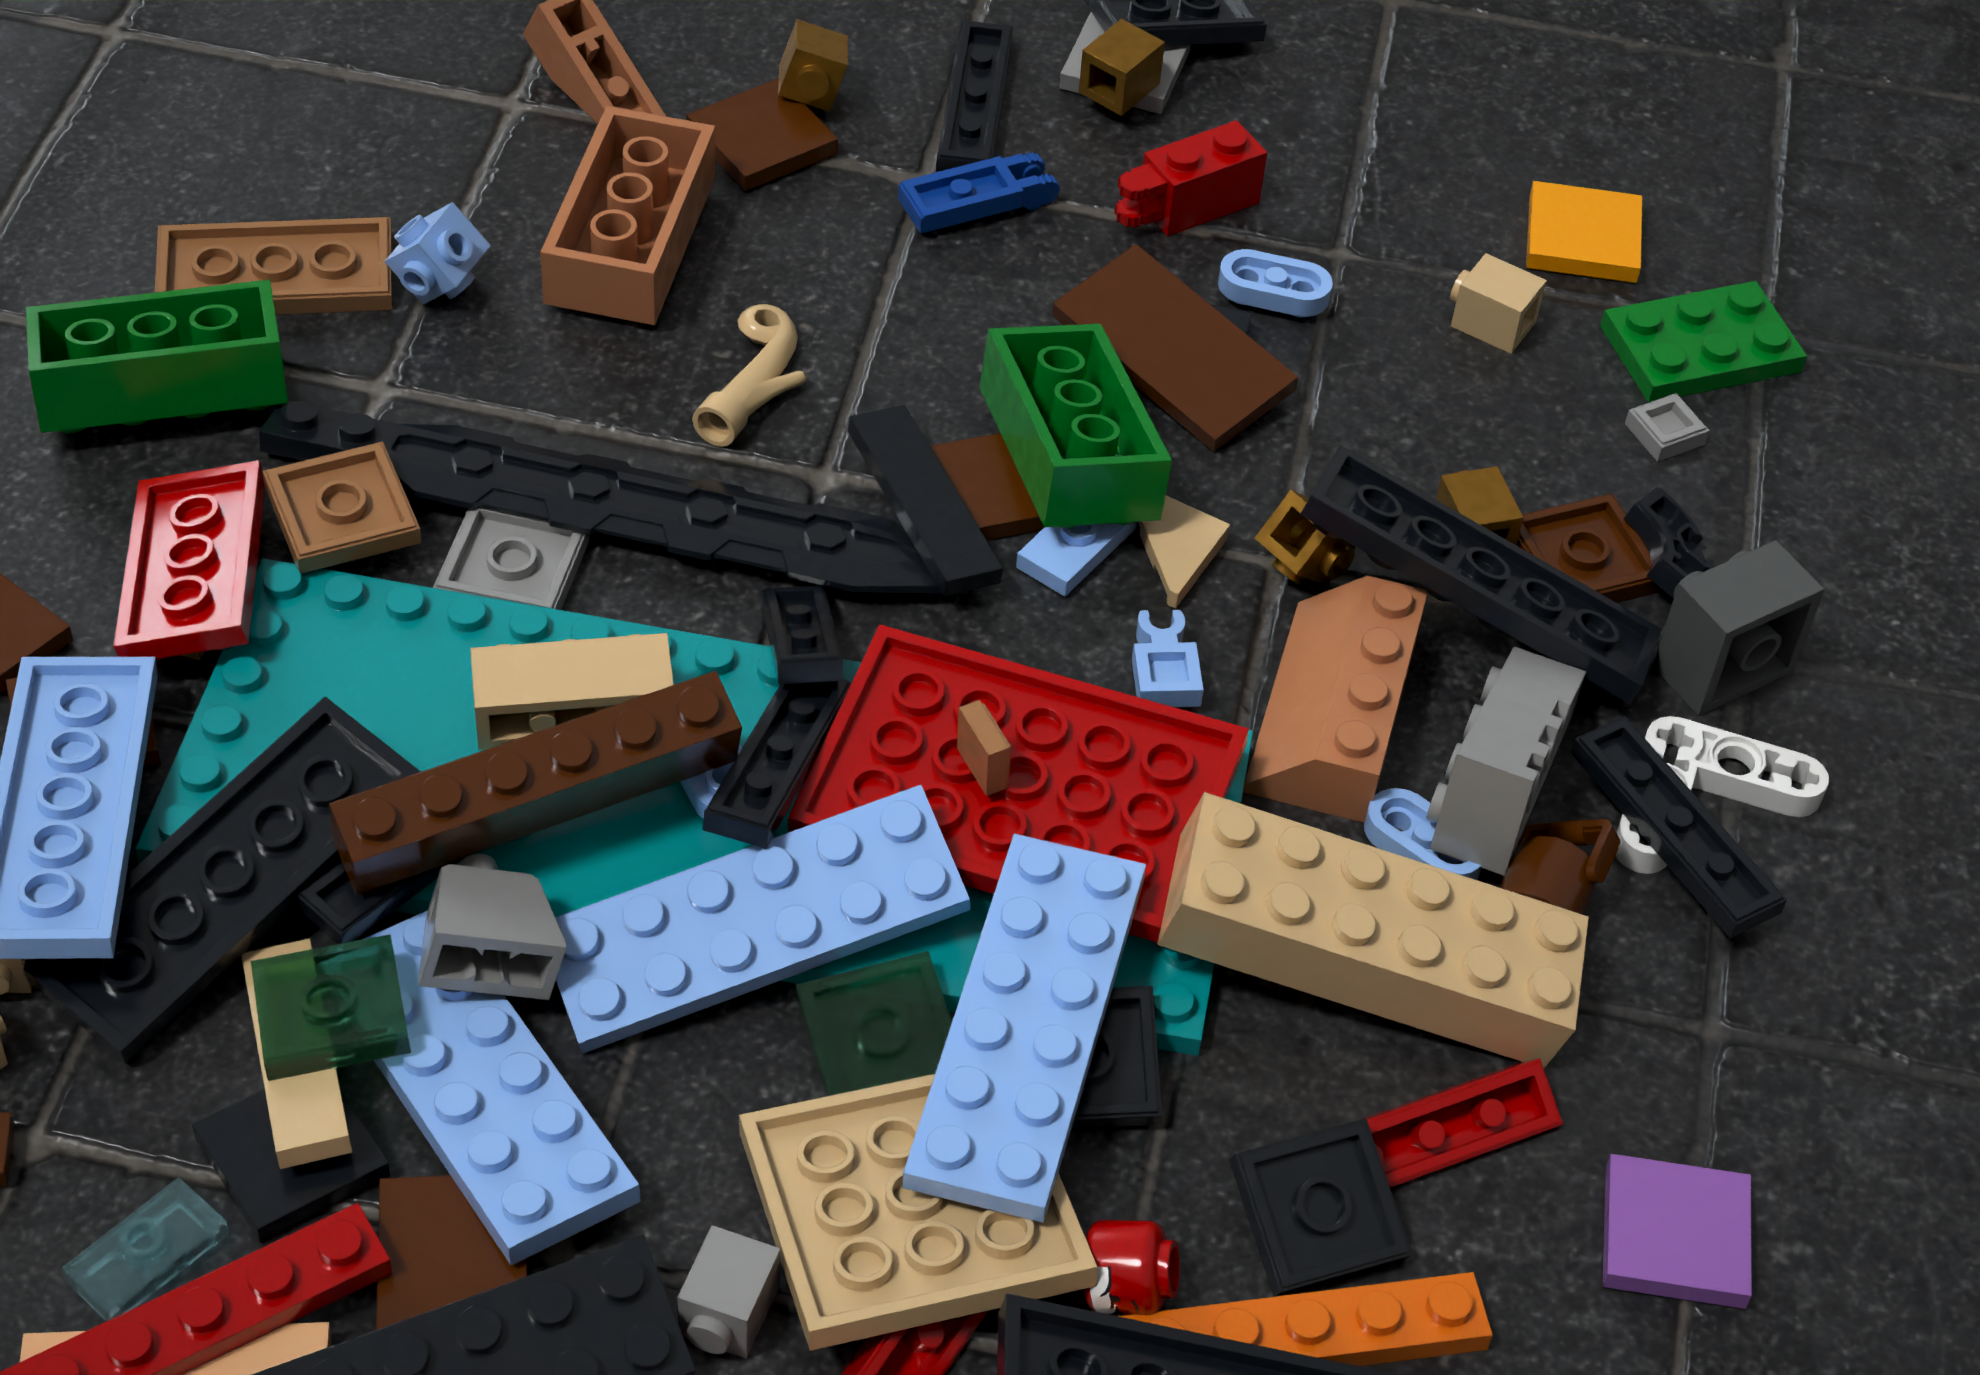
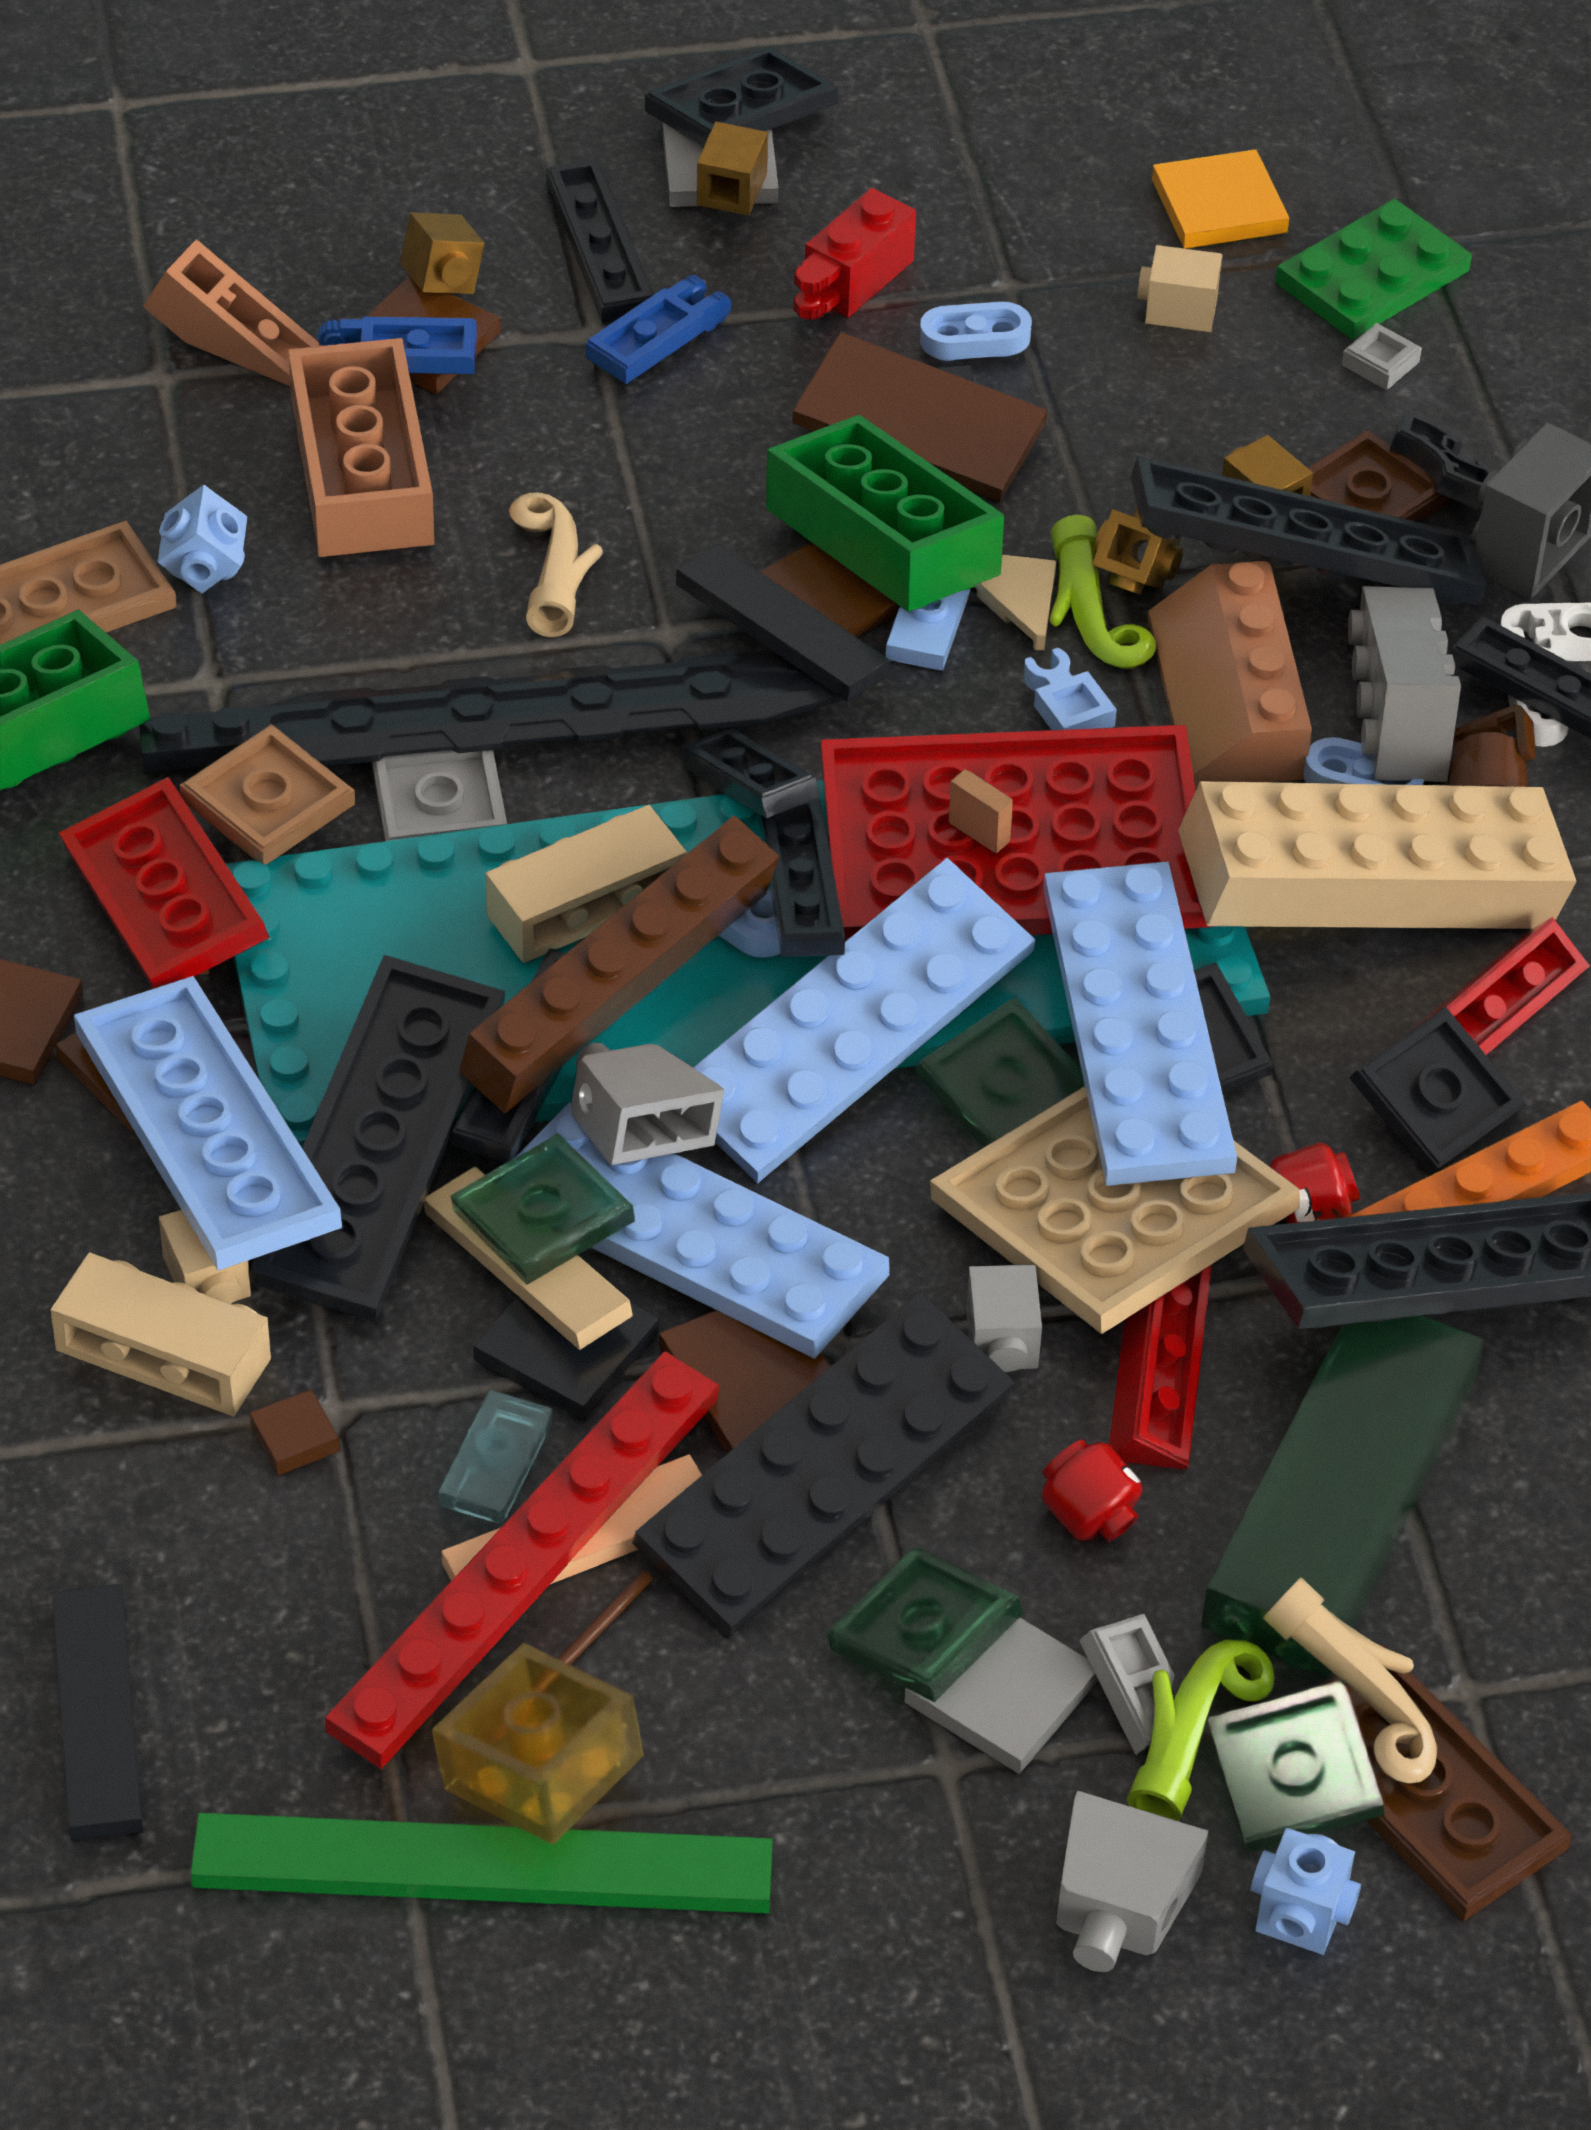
camera: 20 degrees left, 0 degrees up
(740, 137) = (428, 343): none -> blue hinge
(1239, 565) = (1080, 589): none -> lime plant

